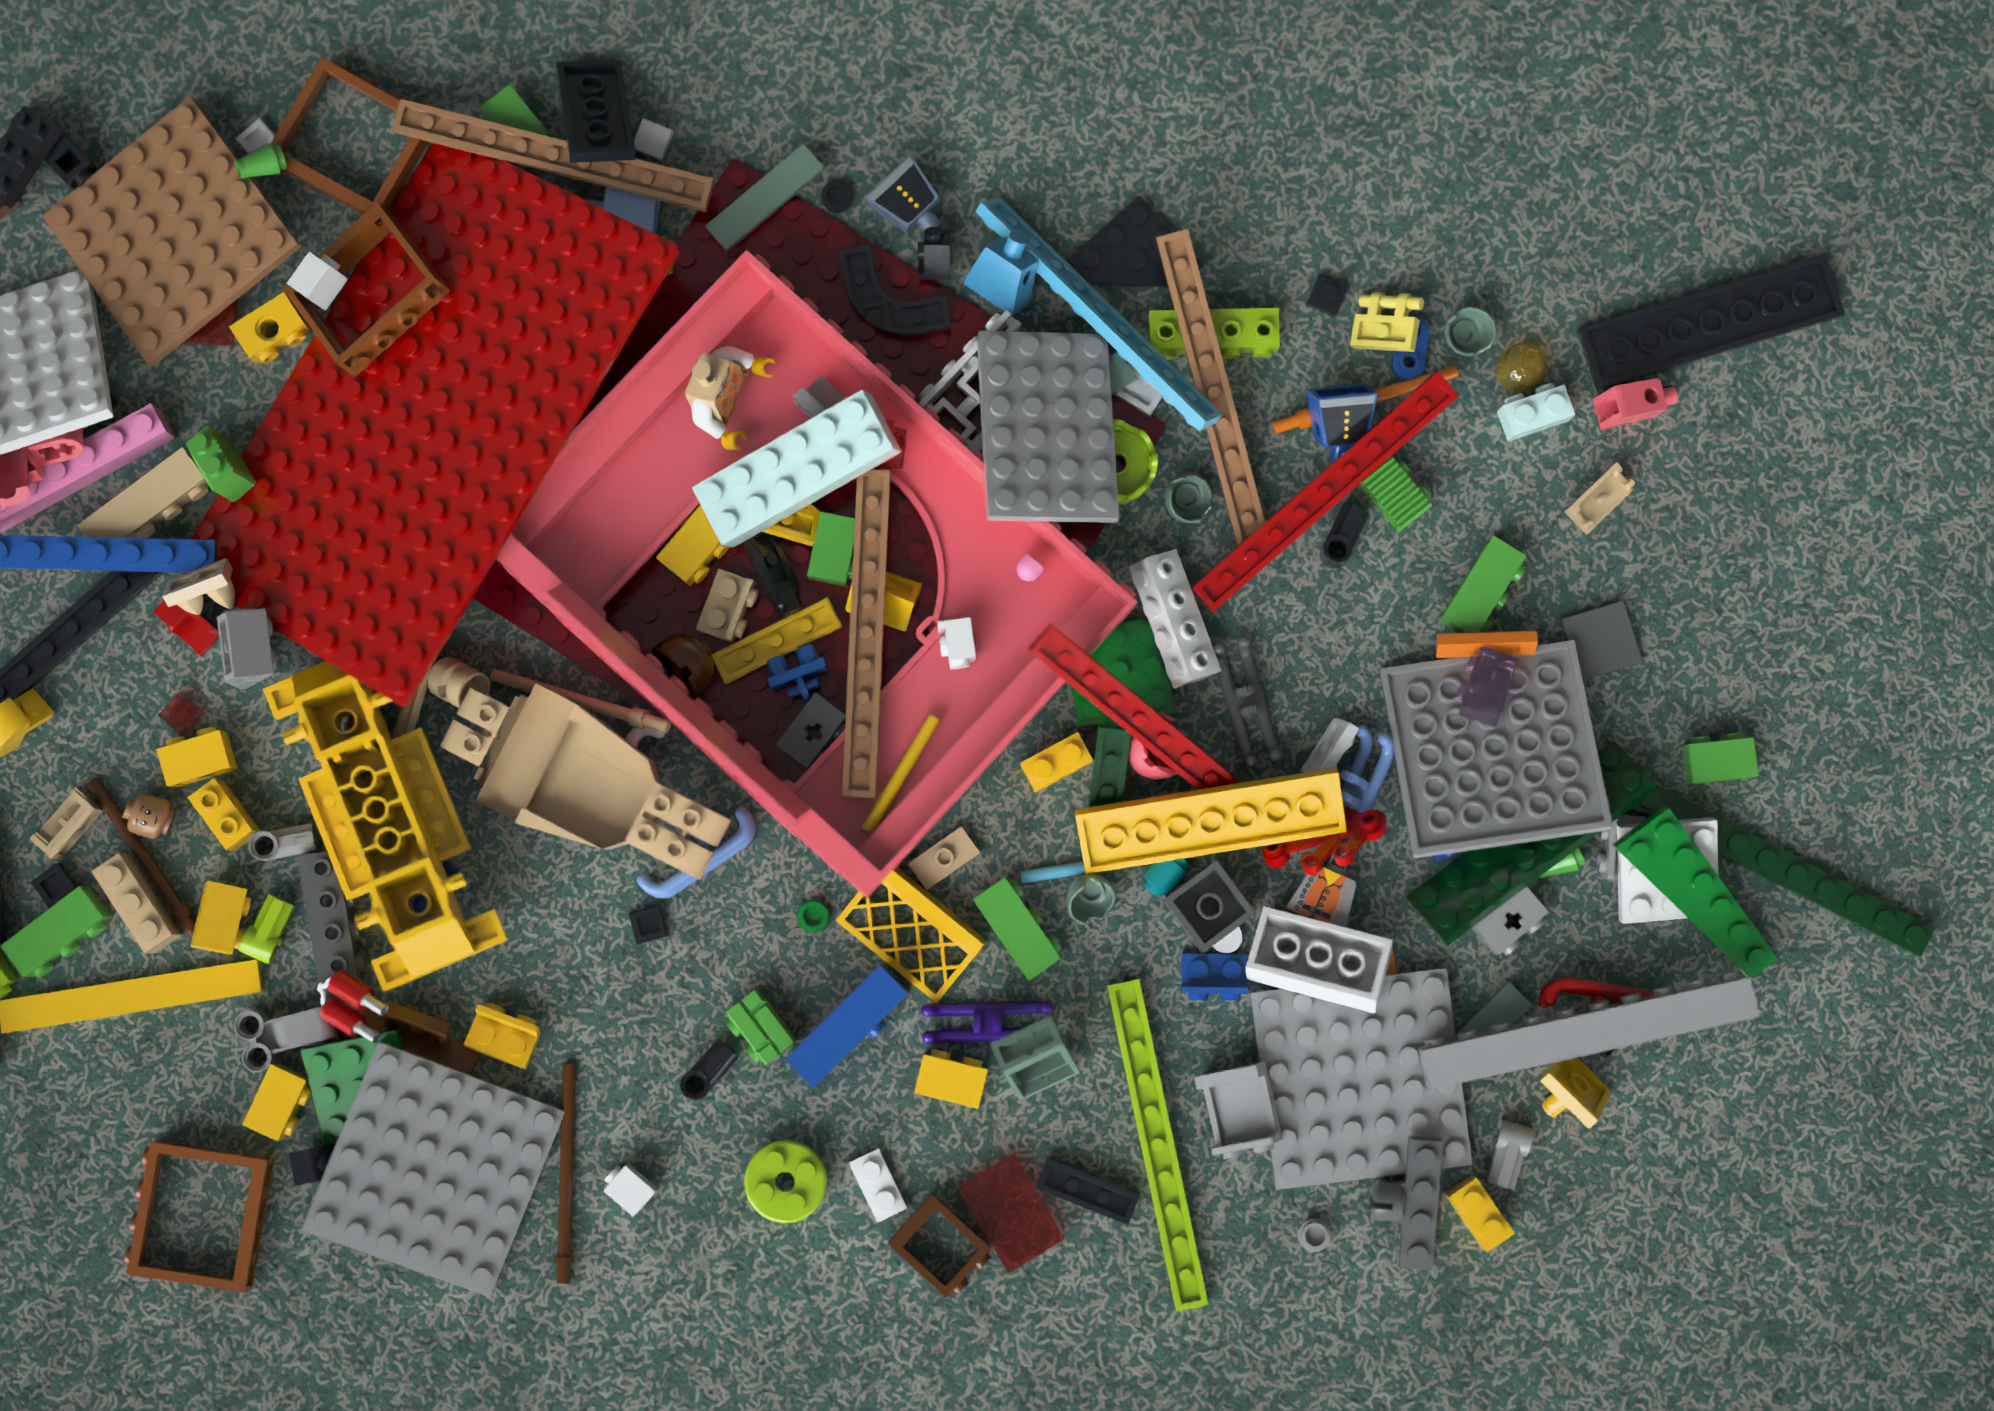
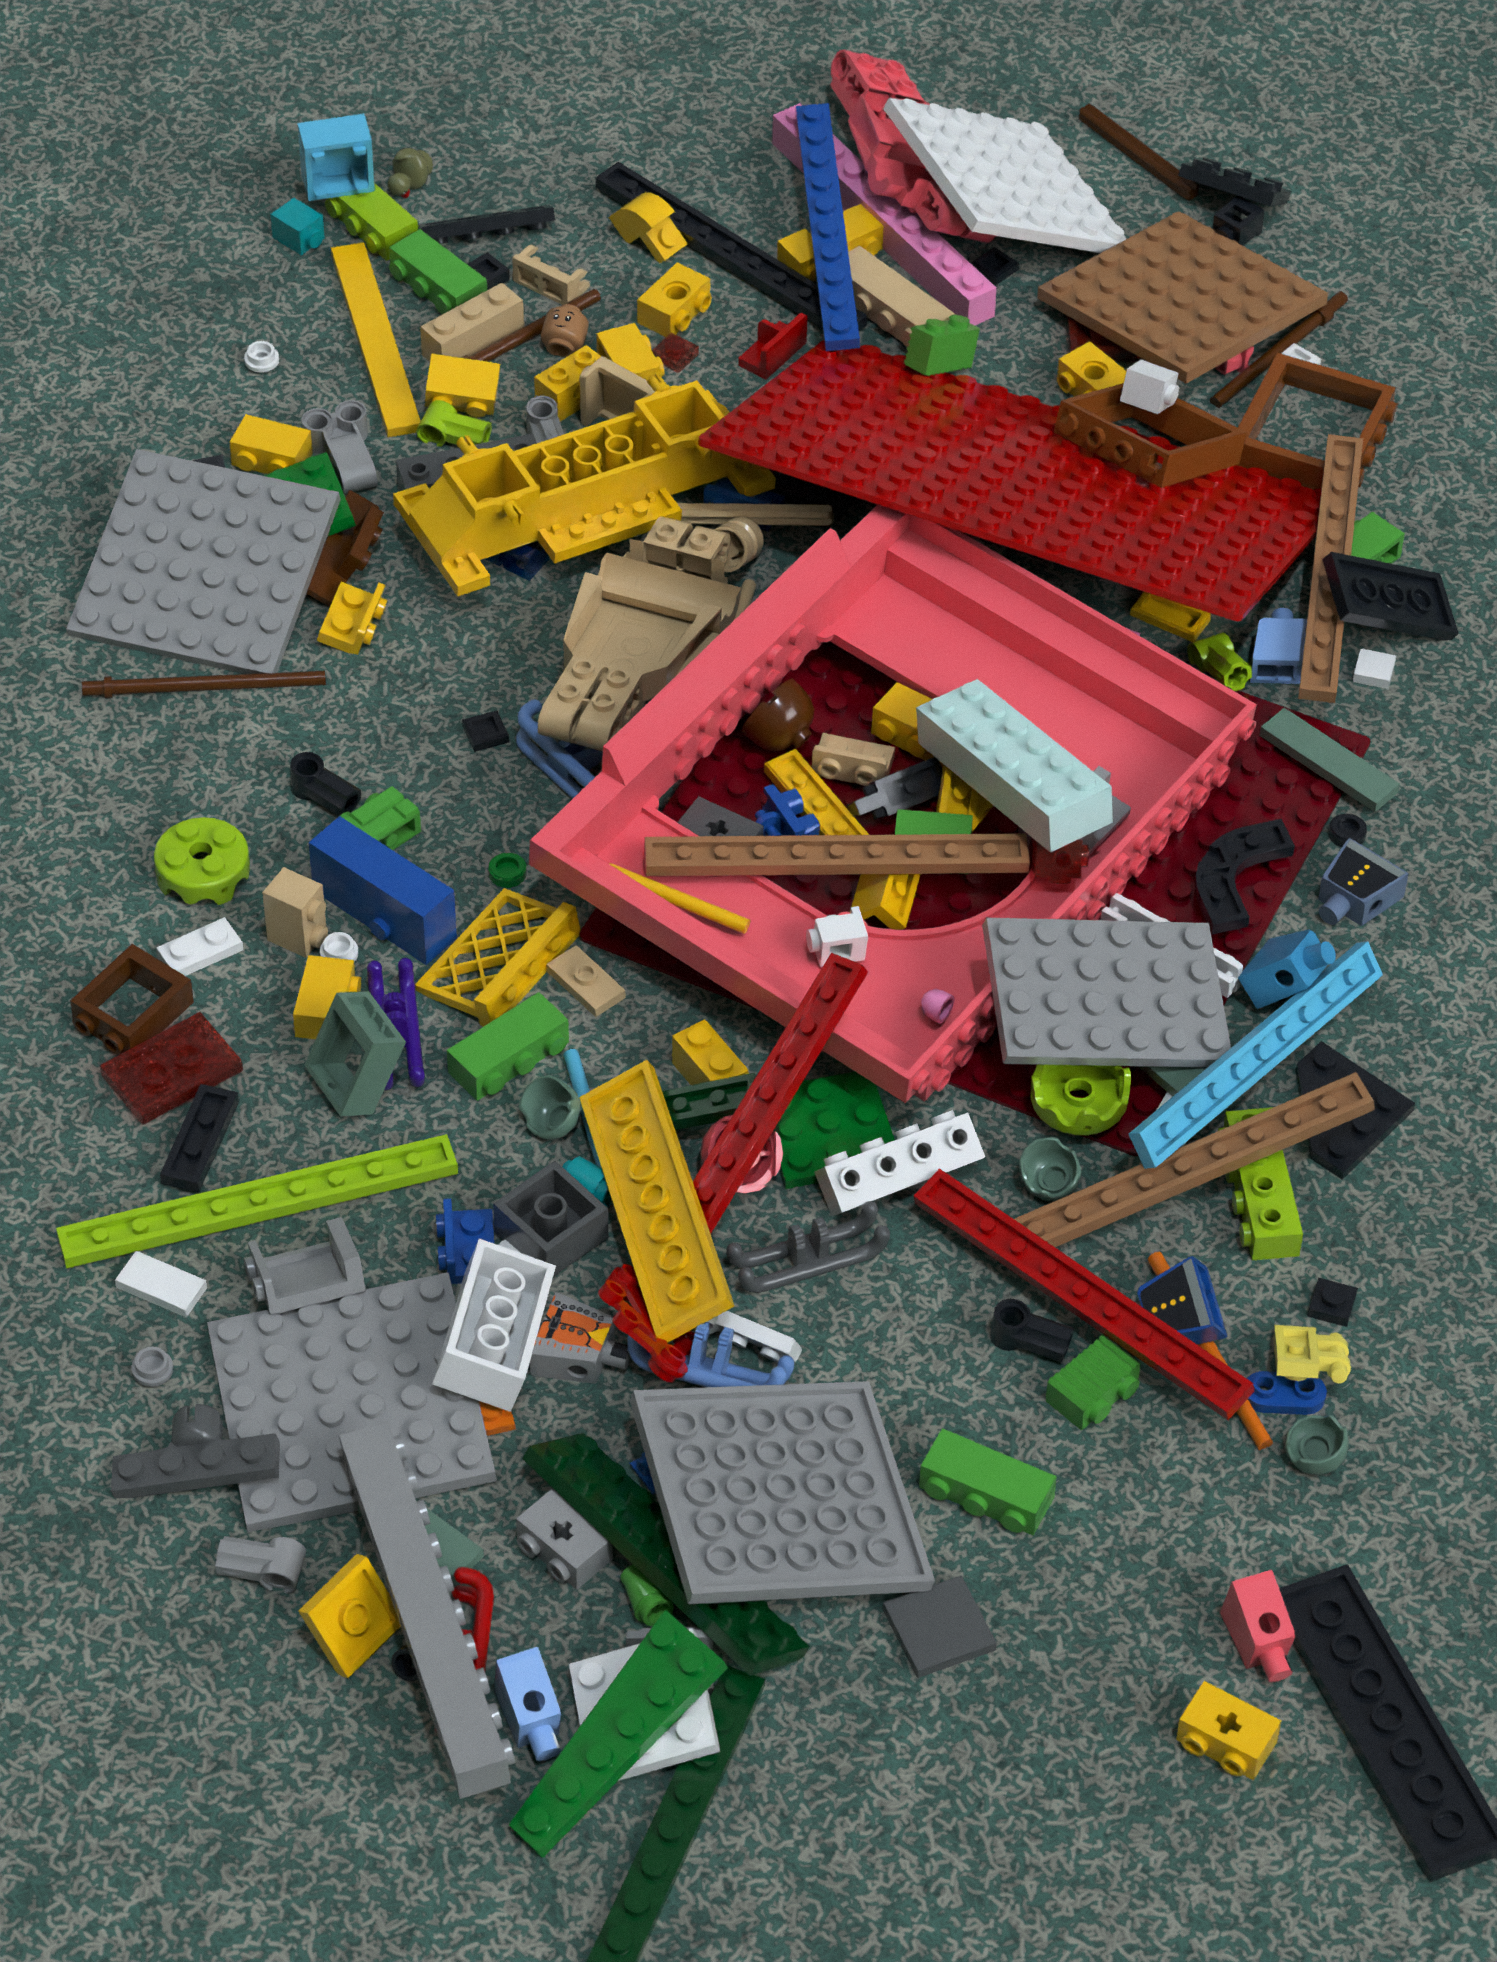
camera: 80 degrees right, 35 degrees down
(51, 520) = (860, 230): none -> yellow arch
(100, 702) = (674, 300): none -> yellow brick
(137, 1106) = (261, 357): none -> white plate
(211, 579) = (812, 330): tan tile -> none
(246, 647) = (745, 359): light grey slope -> none
(252, 1222) = (159, 438): dark orange window -> none
(262, 161) = (1269, 342): bright green cone -> none
(263, 766) = (609, 390): none -> tan panel
(264, 181) = (1316, 318): none -> reddish brown bar
(342, 1015) = (376, 476): red piece -> none
(629, 1188) = (187, 730): white brick -> none
(716, 389) = (1097, 702): torso -> none
(867, 1101) = (295, 912): none -> tan brick
(893, 1065) = (339, 946): none -> white plate
(935, 254) = (1298, 908): black brick -> none
(1230, 1226) = (161, 1284): none -> white tile
(1467, 644) = (914, 1475): orange tile -> none
(1479, 1213) = (184, 1528): yellow brick -> none
(1487, 686) = (858, 1470): clear purple brick -> none
(1521, 367) = (1284, 1512): clear yellow hair -> none
(1536, 412) = (1226, 1522): light aqua brick -> none
(1600, 499) = (1127, 1604): tan hinge -> none
(1660, 956) = (528, 1702): none -> light blue torso
(1720, 422) = (1249, 1731): none -> yellow brick
(1720, 760) = (798, 1763): bright green brick -> none

